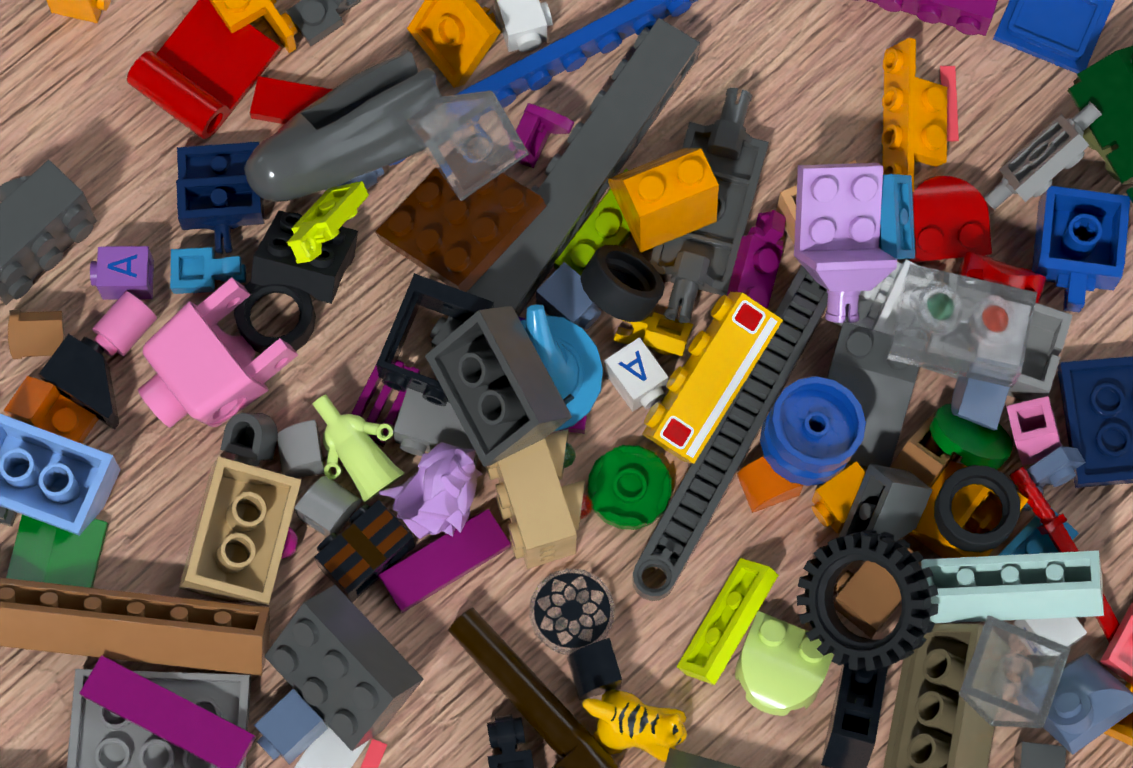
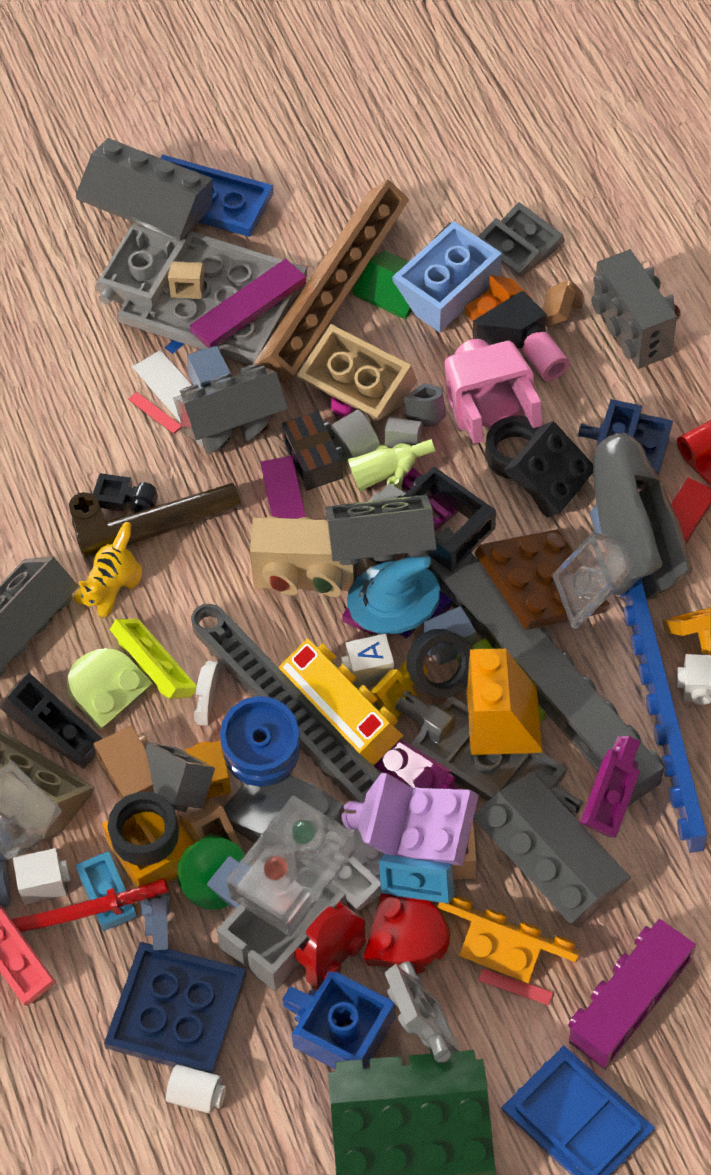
camera: 115 degrees right, 15 degrees down
(123, 270) = (585, 366): medium lavender brick -> none
(197, 269) = (570, 409): dark azure plate -> none
(324, 219) = (566, 473): neon yellow hinge -> none
(438, 493) = (325, 487): lavender hair -> none
(535, 128) = (597, 653): magenta tile -> none
(571, 610) = (210, 567): tile -> none
(594, 669) = (159, 566): black brick -> none
(629, 487) = (284, 629): green tile -> none
(710, 52) = (612, 788): none -> magenta hinge
(739, 544) = (206, 690): none -> white tile
(801, 98) = (552, 848): none -> dark grey slope
(913, 588) = (84, 748): black tyre -> none
(1017, 586) = (72, 836): light aqua brick -> none
(1034, 429) = (195, 921): bright pink brick -> none

